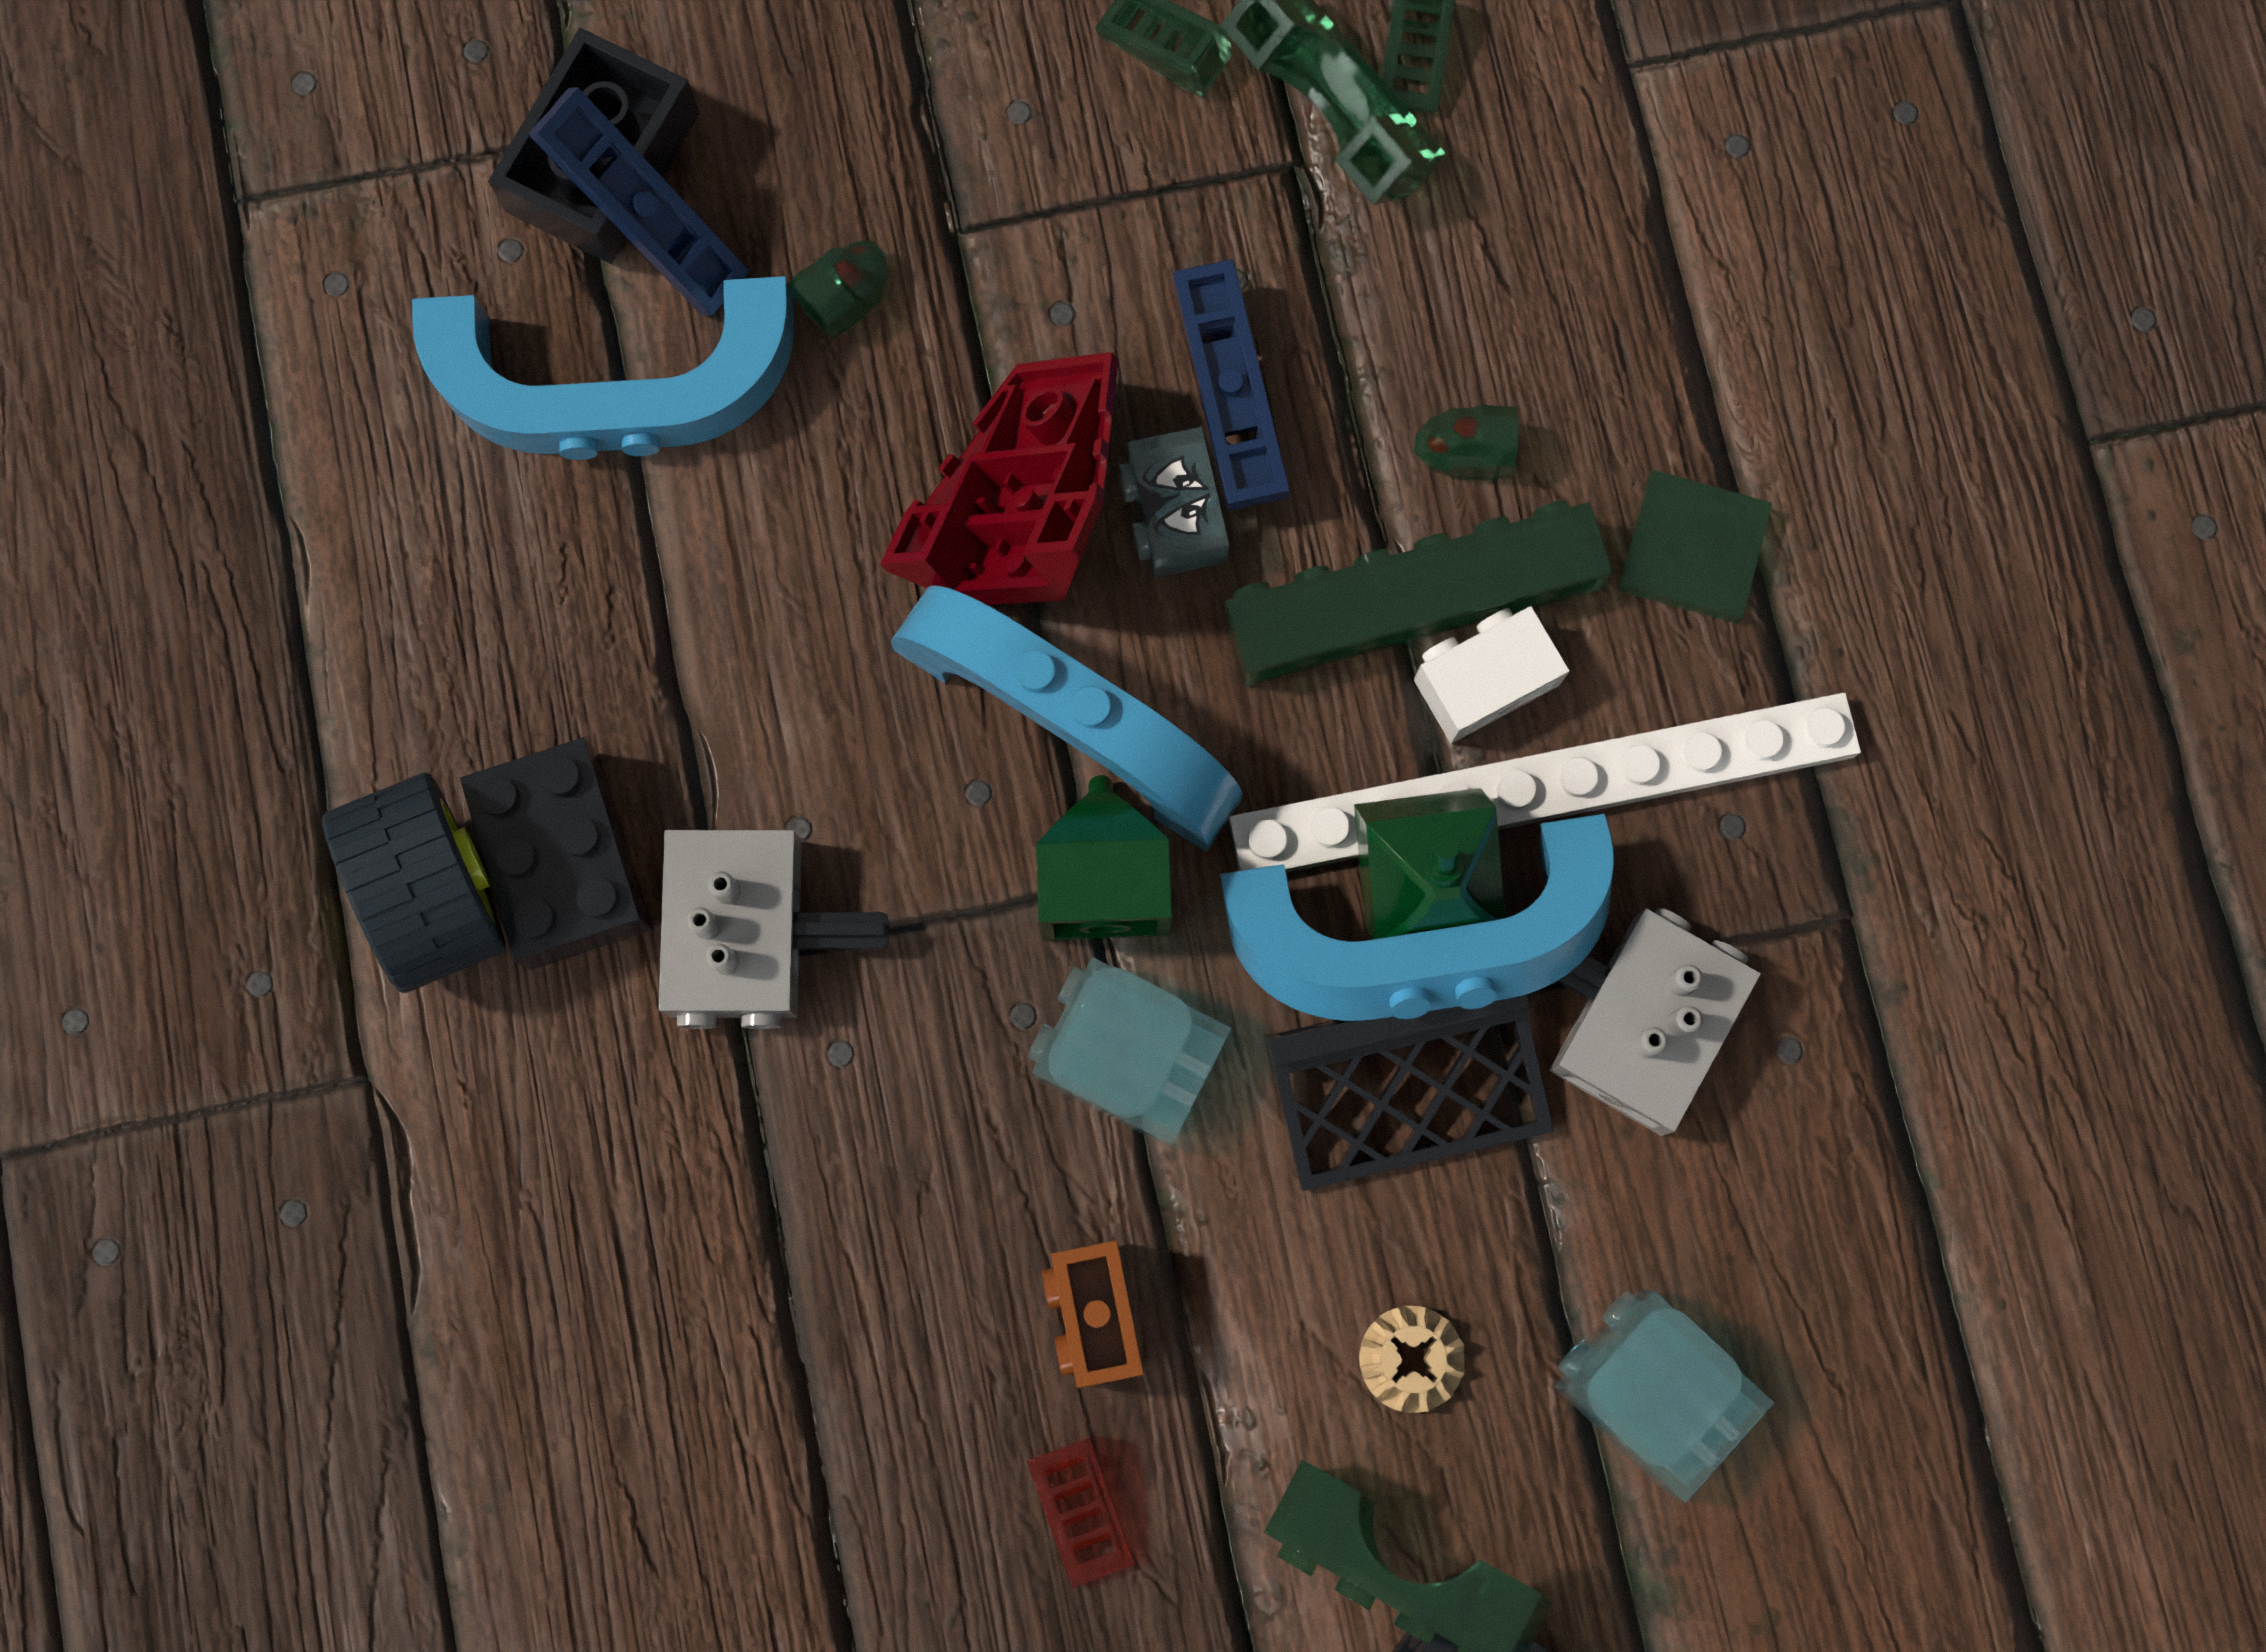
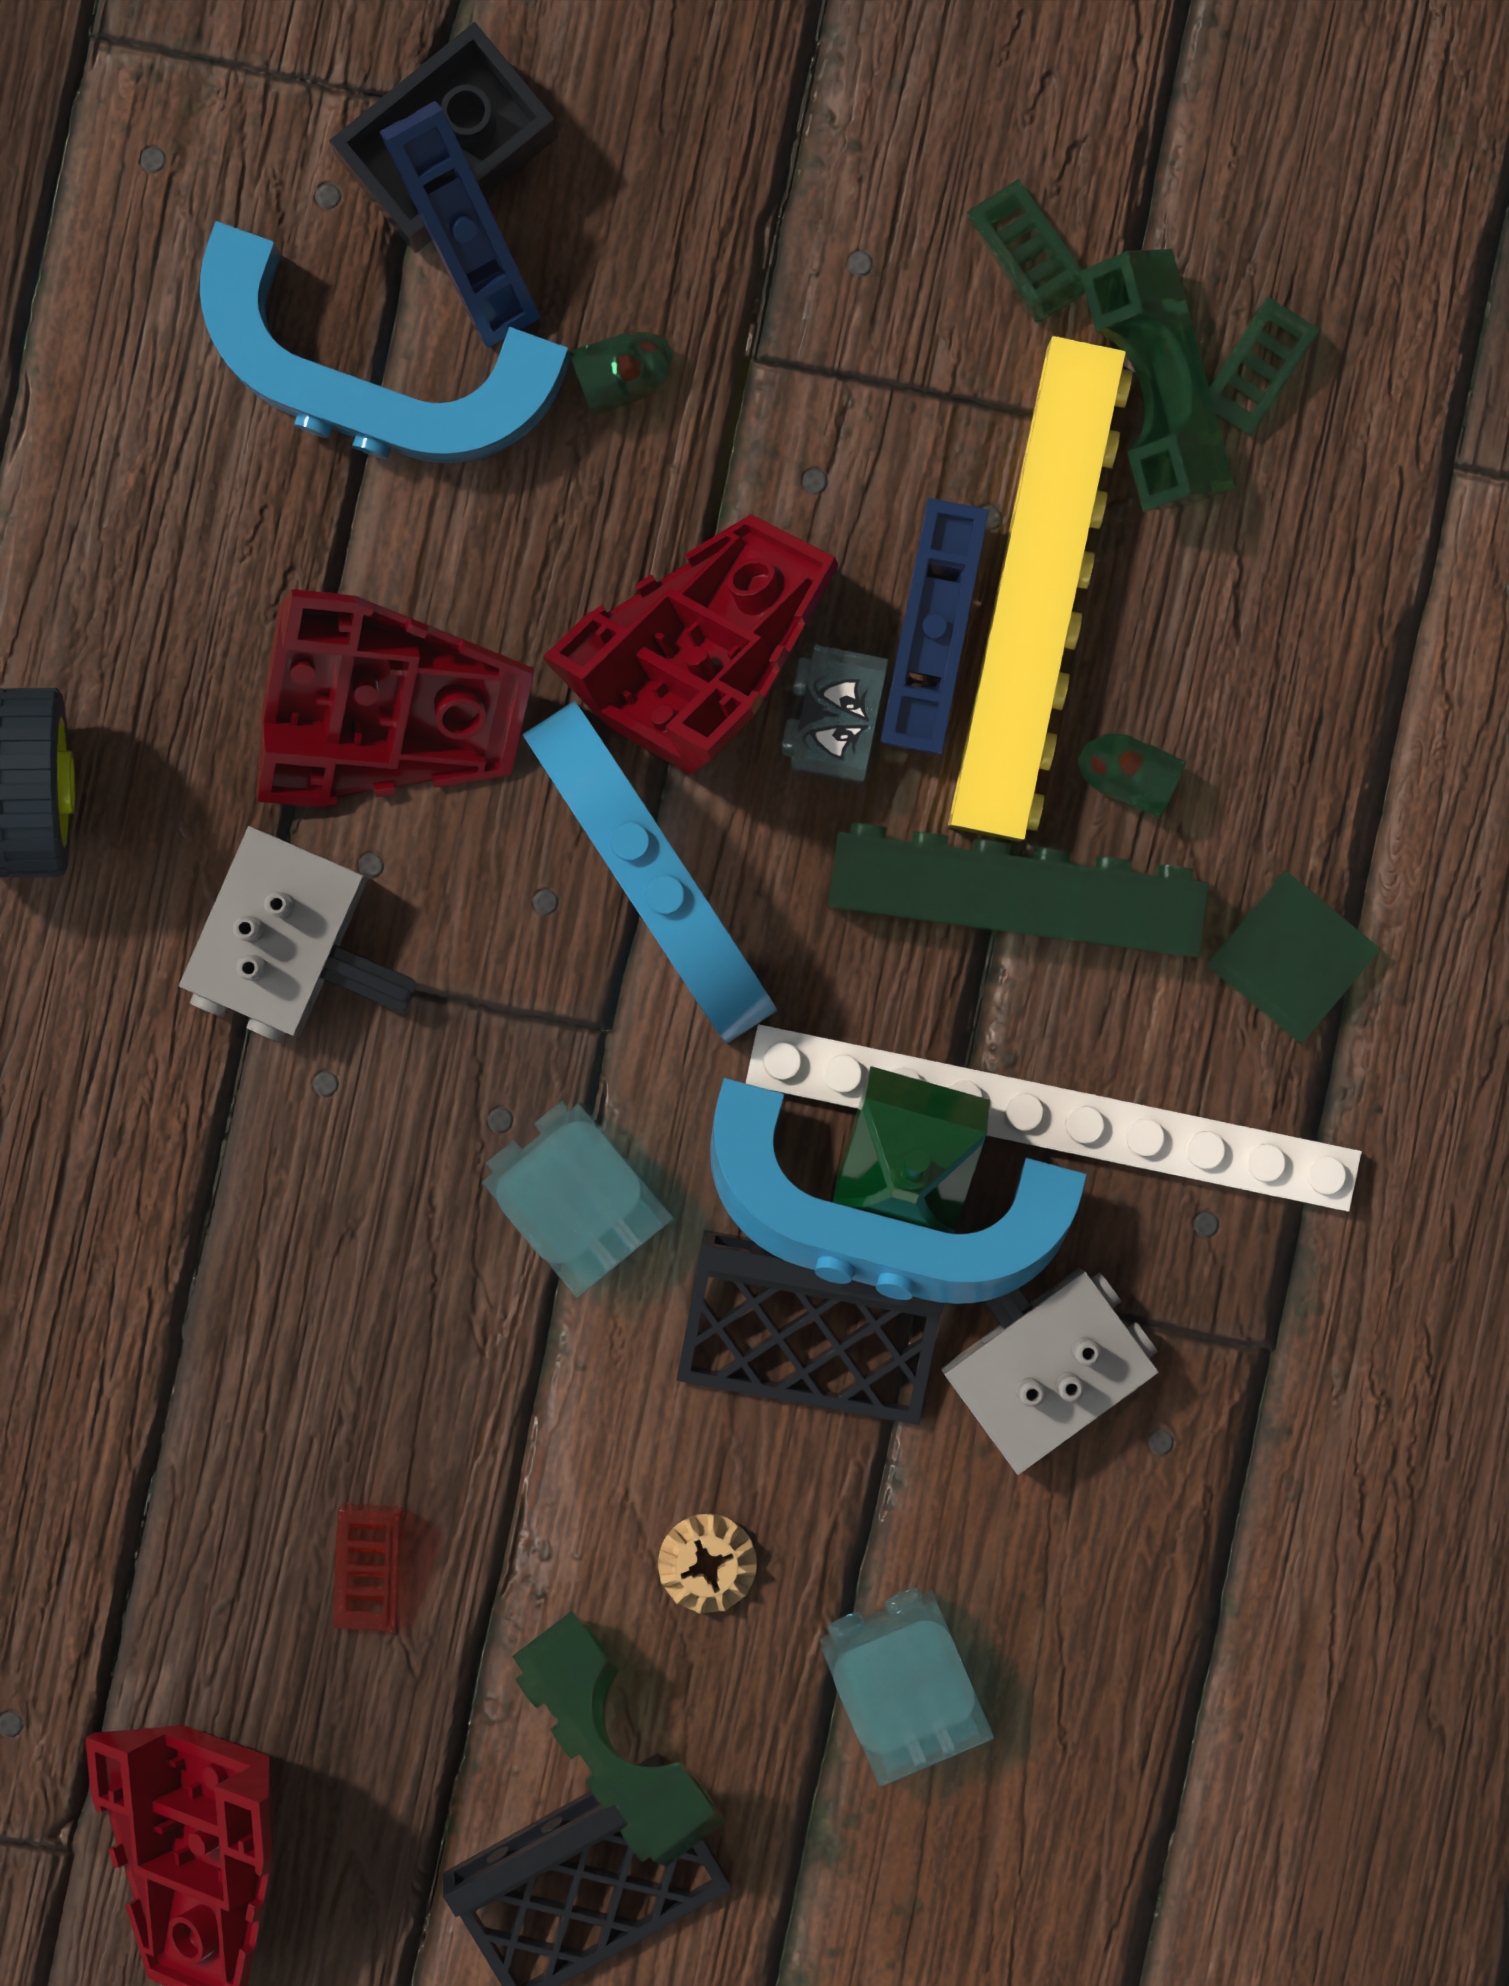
camera: 25 degrees right, 10 degrees up
(555, 854) = (144, 801): black brick -> none
(742, 661) = (380, 704): none -> dark red wedge
(1096, 1315) = (449, 1412): dark orange brick -> none
(1103, 871) = (621, 1029): dark green piece -> none
(1310, 319) = (1038, 588): none -> light yellow brick
(1490, 672) = (1049, 996): white brick -> none

